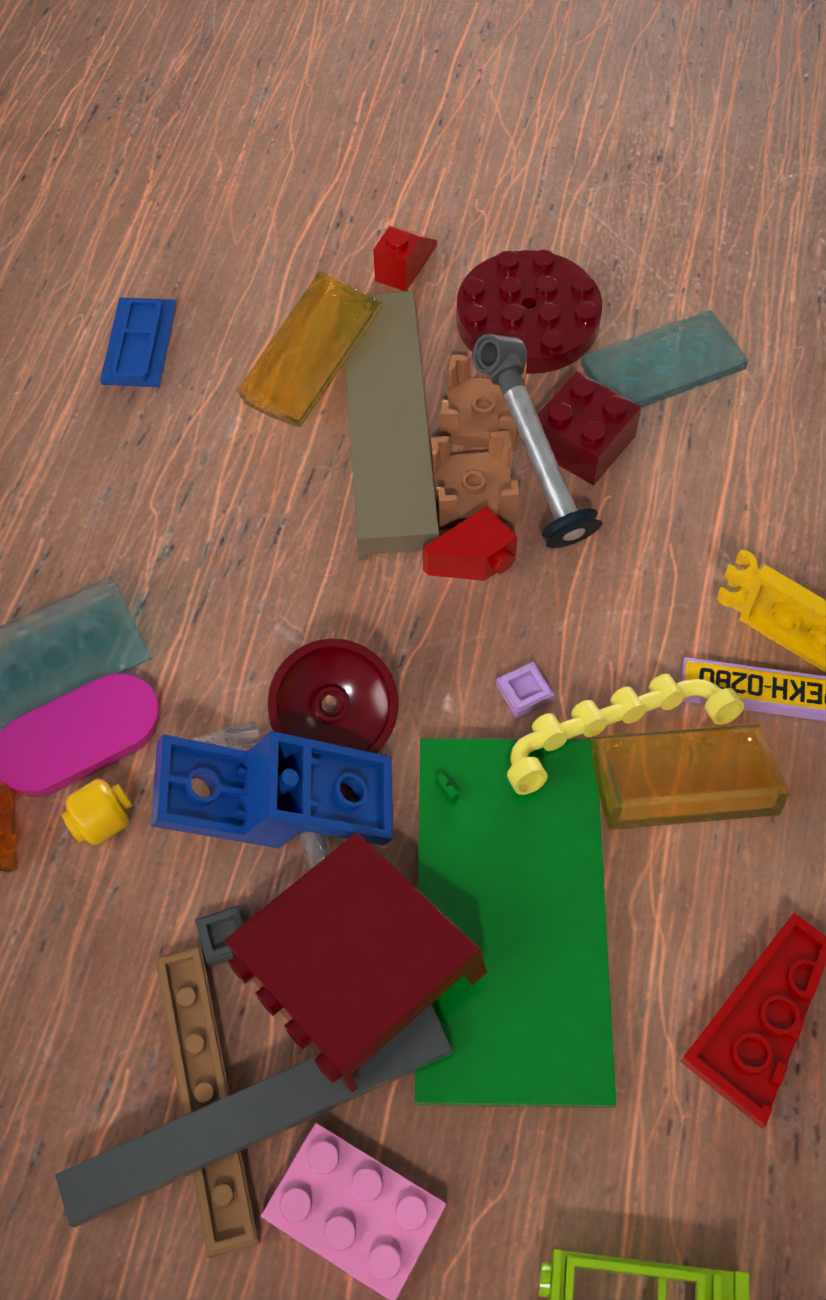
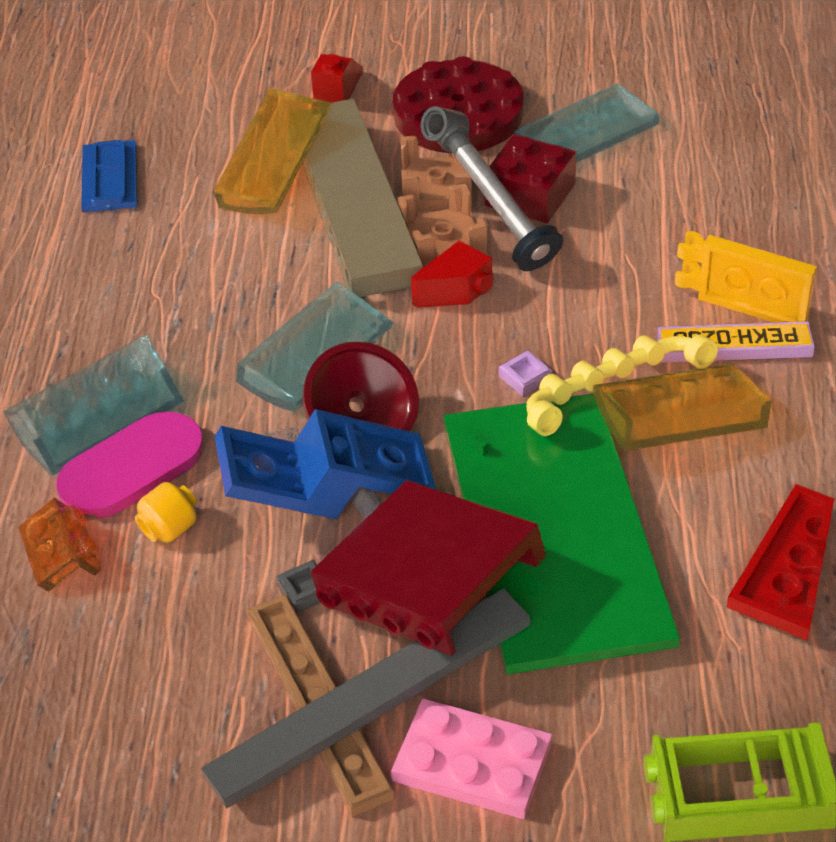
camera: 10 degrees left, 15 degrees down
(313, 603) = (282, 361): none -> clear light blue slope

